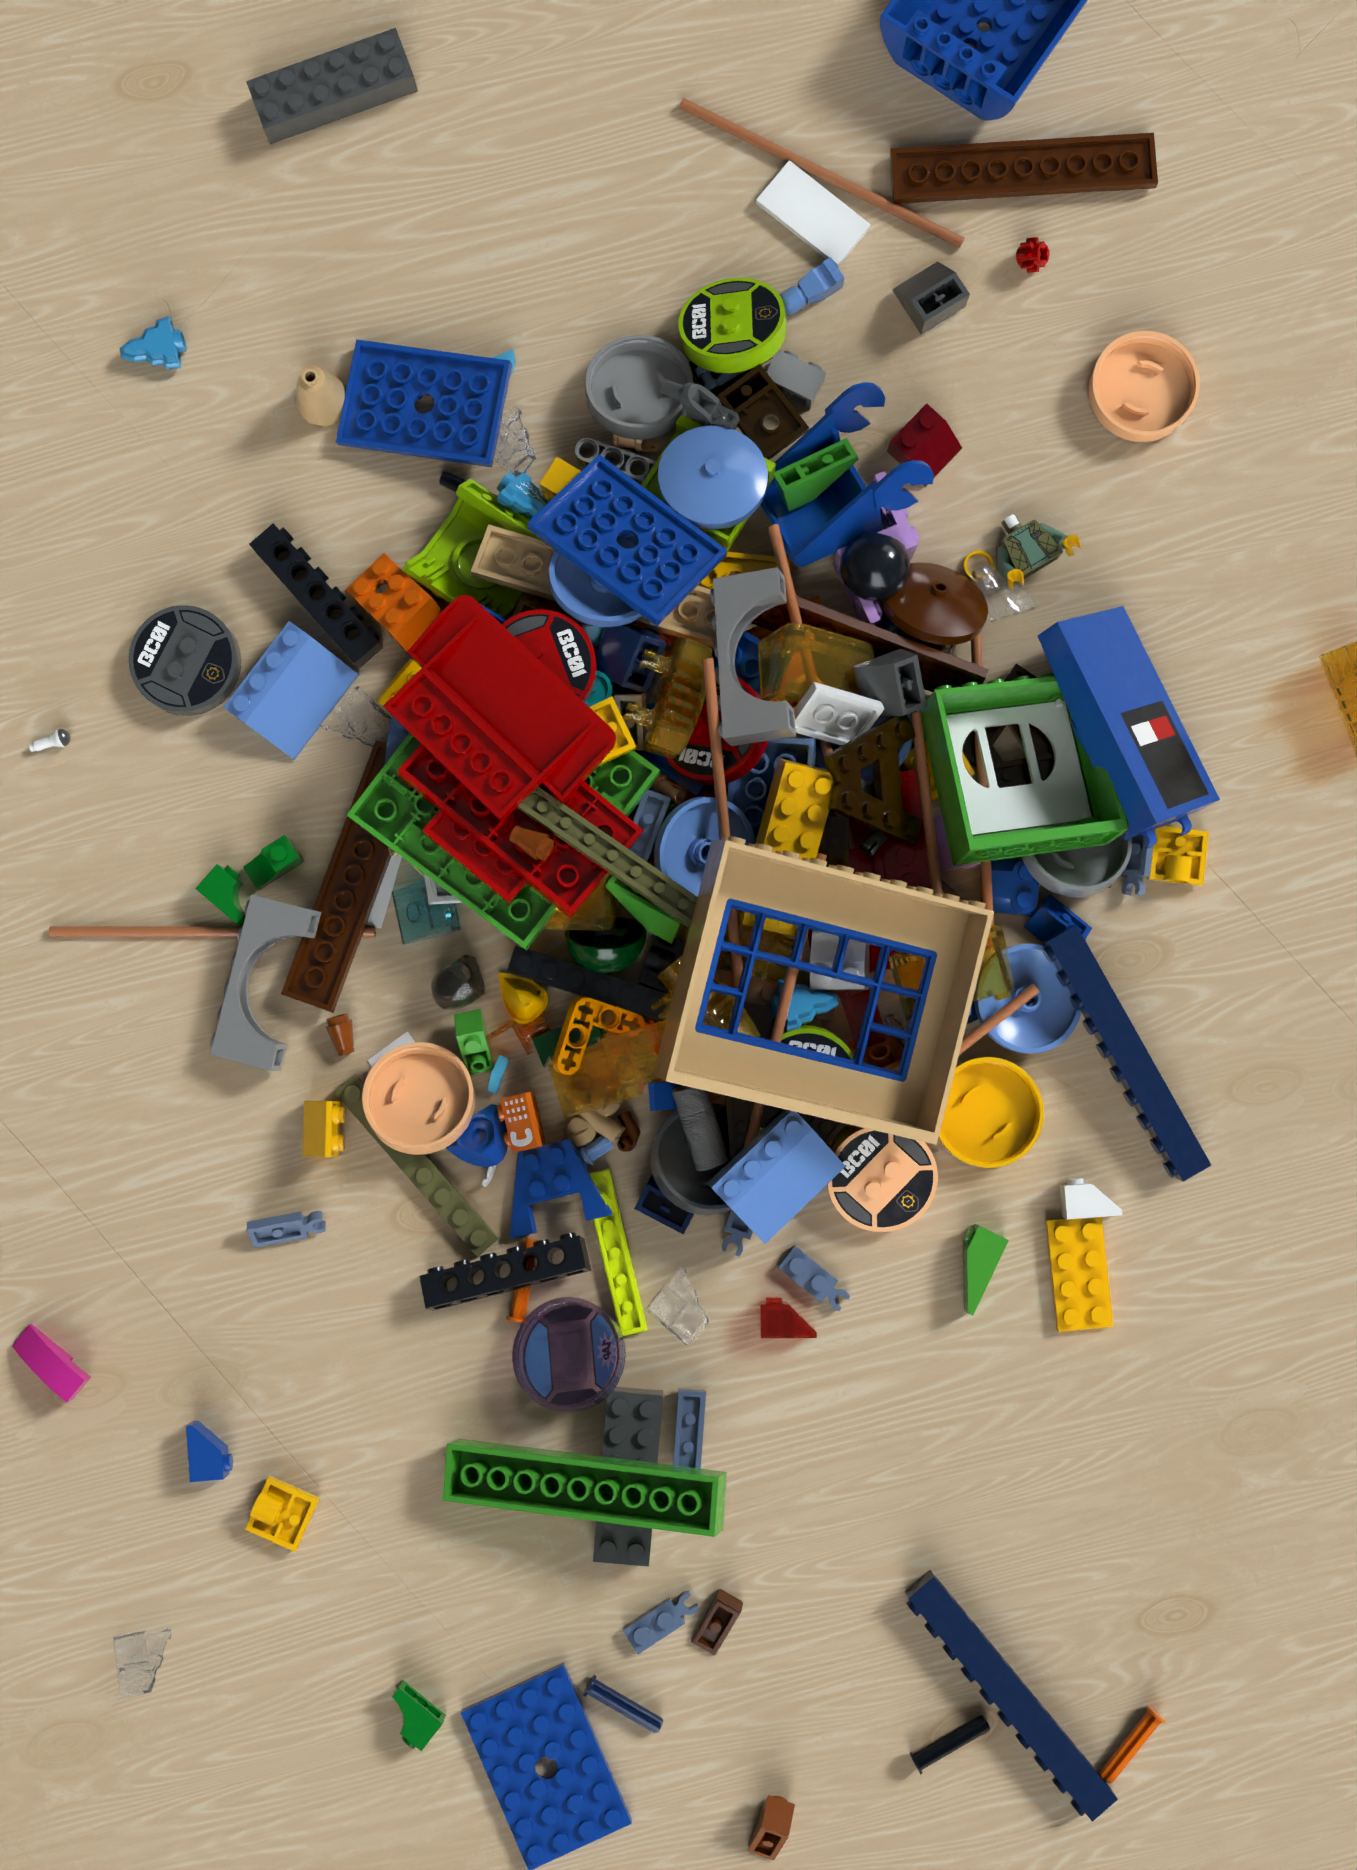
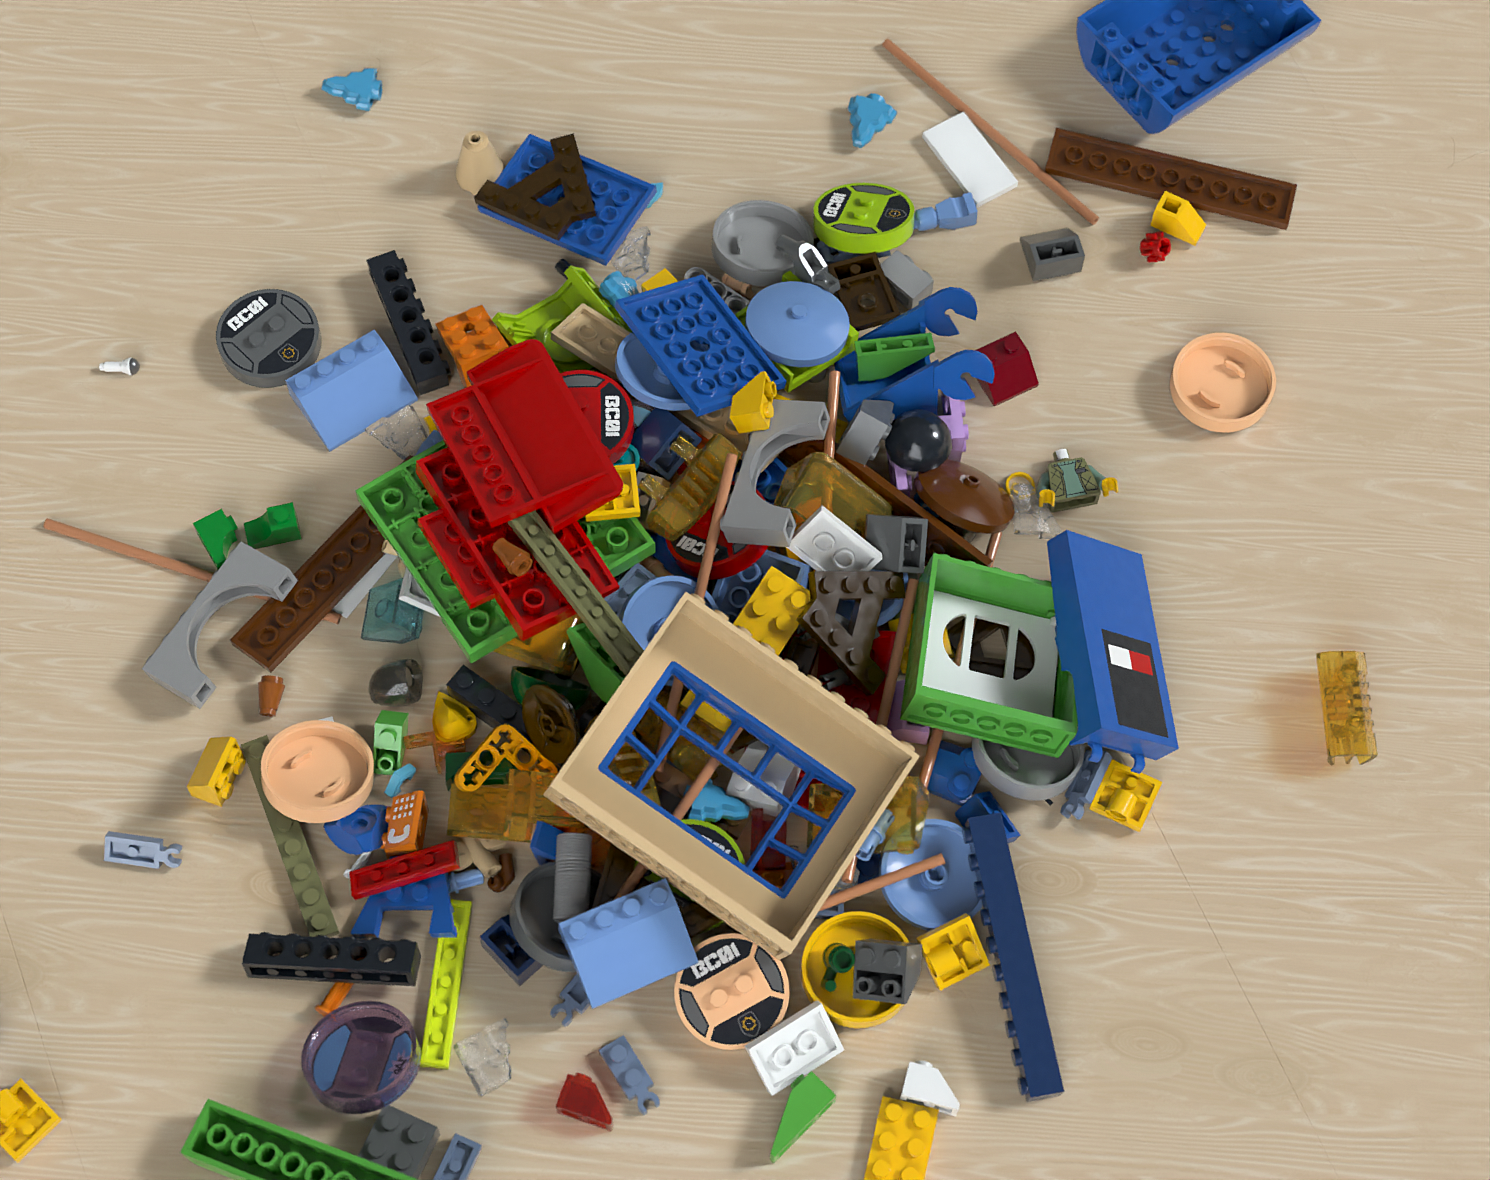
camera: 15 degrees right, 20 degrees down
(376, 424) = (520, 200): none -> dark brown plate
(539, 1166) = (404, 869): none -> red tile
(627, 987) = (550, 723): none -> dark brown piece
(695, 201) = (868, 117): none -> dark azure rock
(706, 592) = (754, 404): none -> yellow slope
(823, 575) = (866, 430): none -> dark grey slope
(955, 1207) = (794, 1047): none -> white plate
(969, 1114) = (837, 959): none -> dark green piece
(1017, 1109) = (886, 970): none -> dark grey slope
(1046, 215) = (1178, 219): none -> yellow slope
(1068, 1066) = (953, 951): none -> yellow plate

